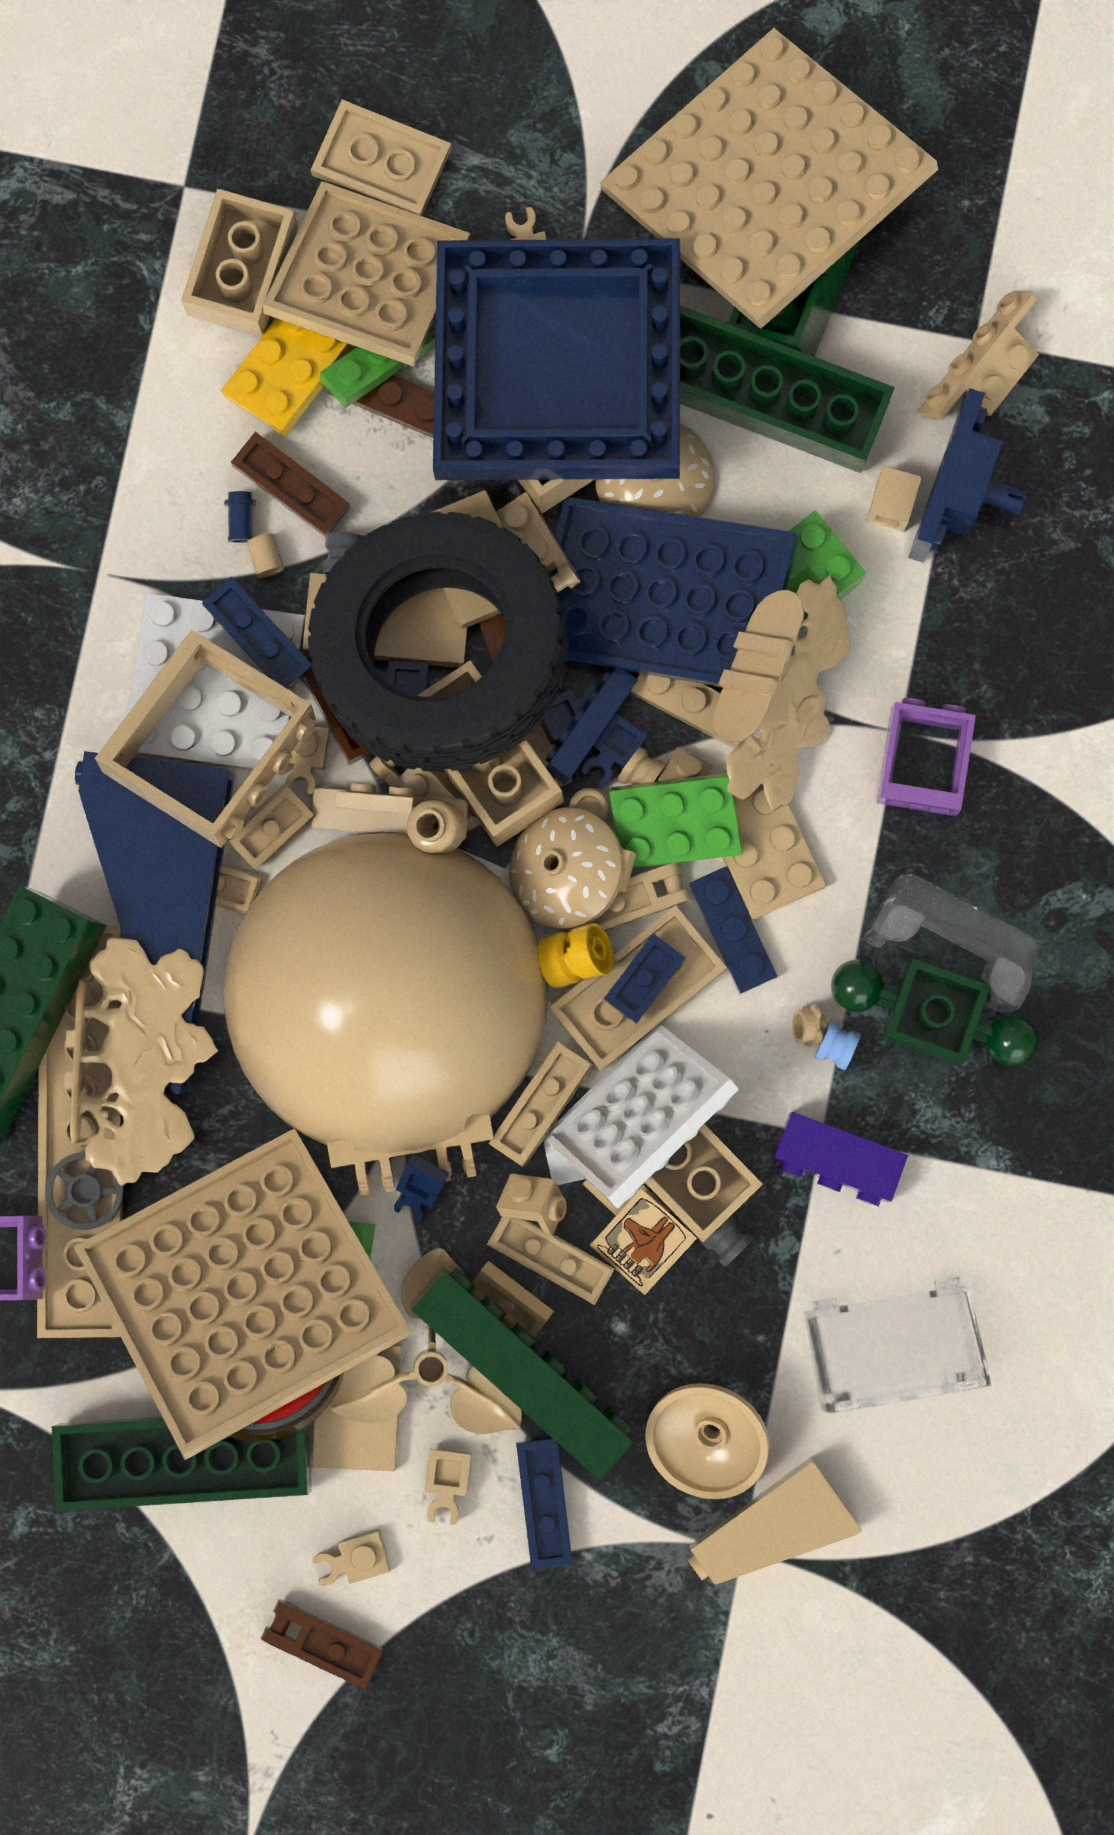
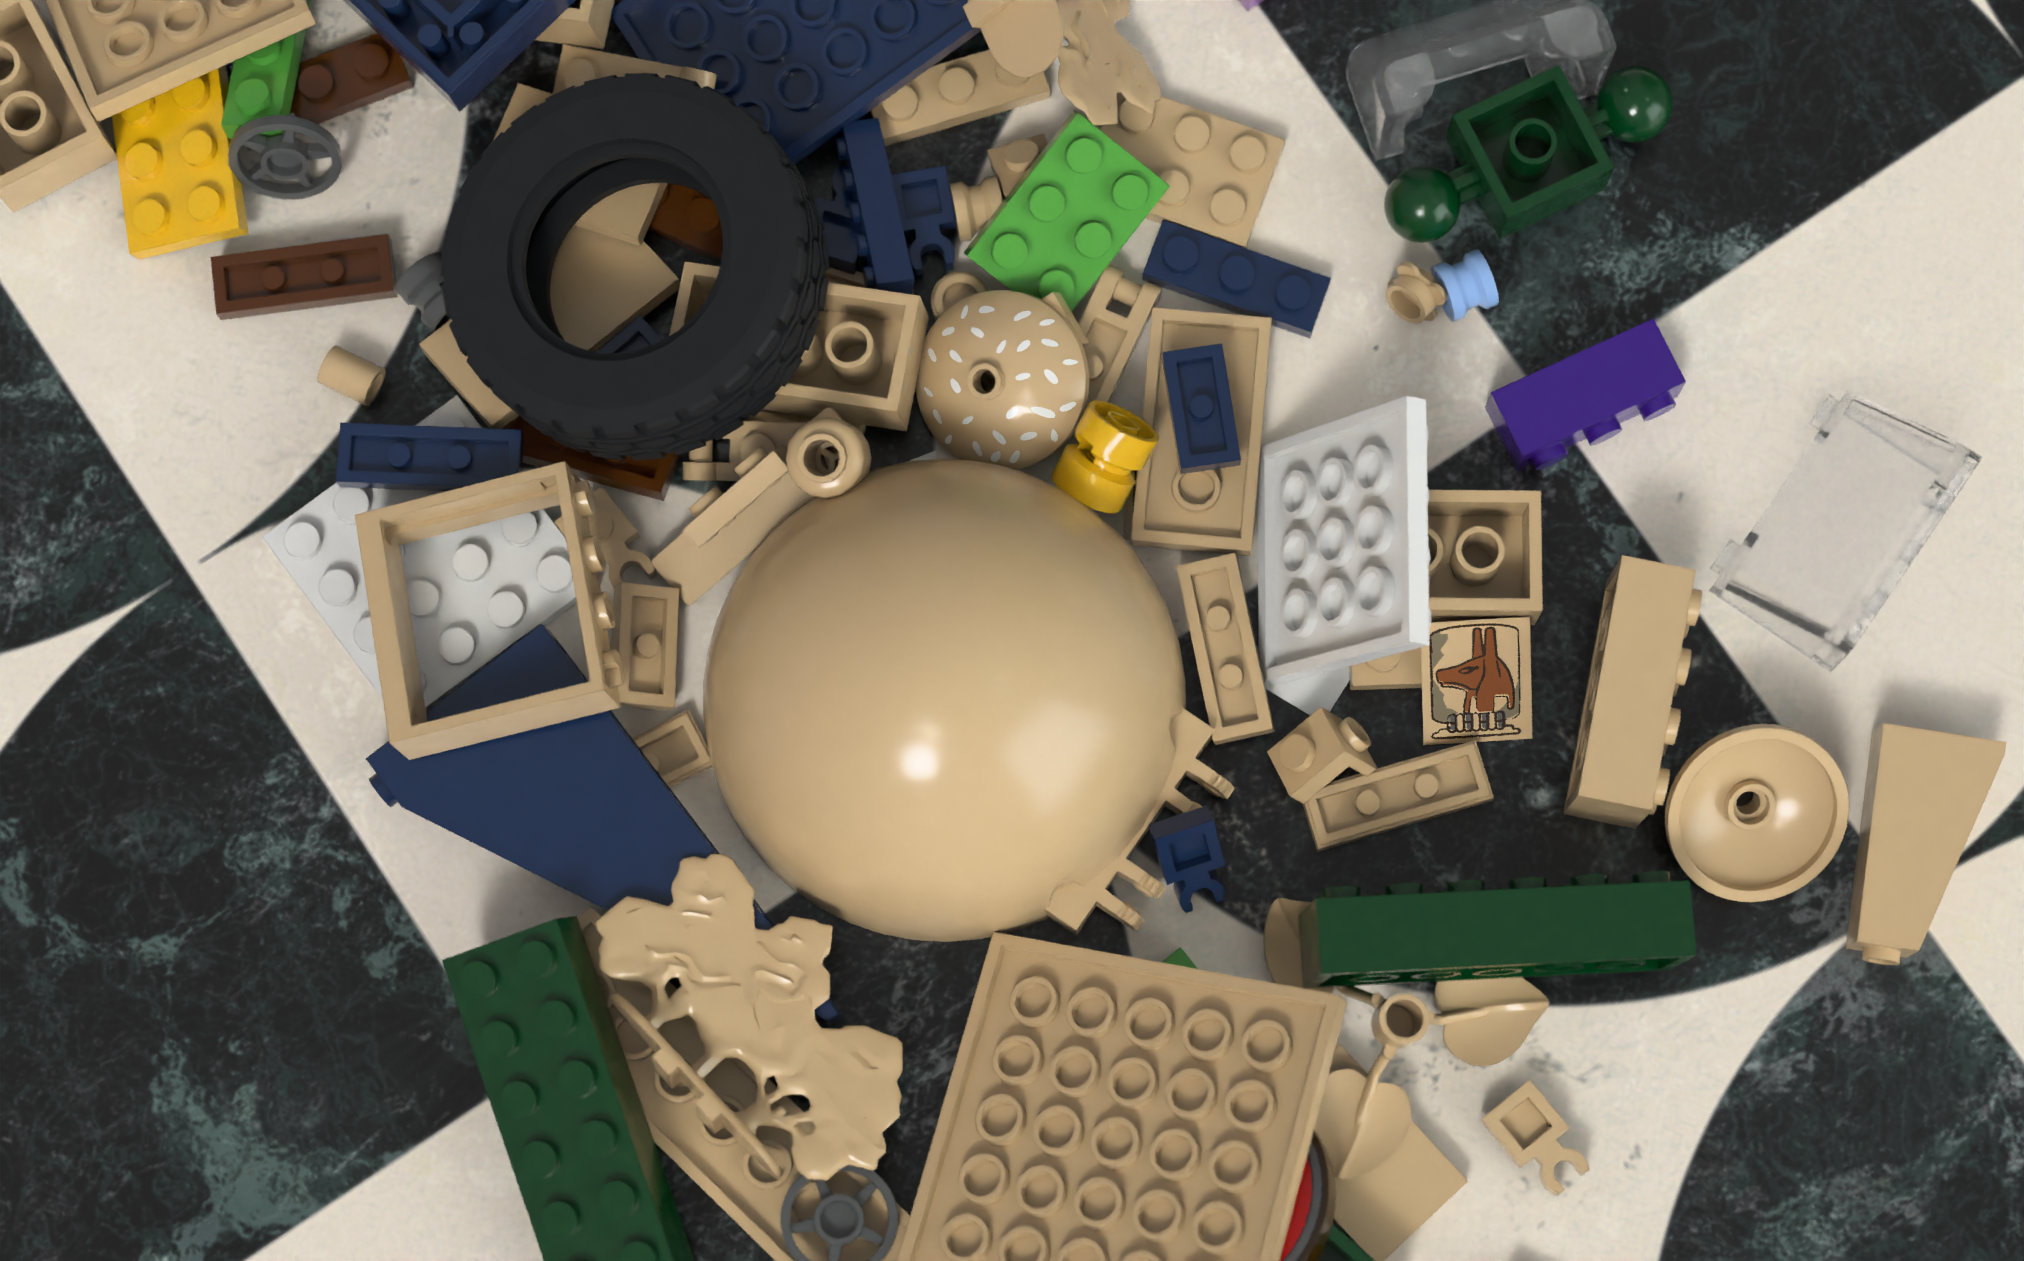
camera: 45 degrees left, 5 degrees down
(240, 516) = (282, 361): dark blue pin -> none
(336, 417) = (285, 156): none -> dark grey wheel
(516, 1301) = (1428, 866): tan plate -> none
(544, 1503) = (1656, 1053): dark blue plate -> none
(707, 1323) = (1631, 692): none -> tan brick
(727, 1241) = (1565, 594): dark grey wheel -> none

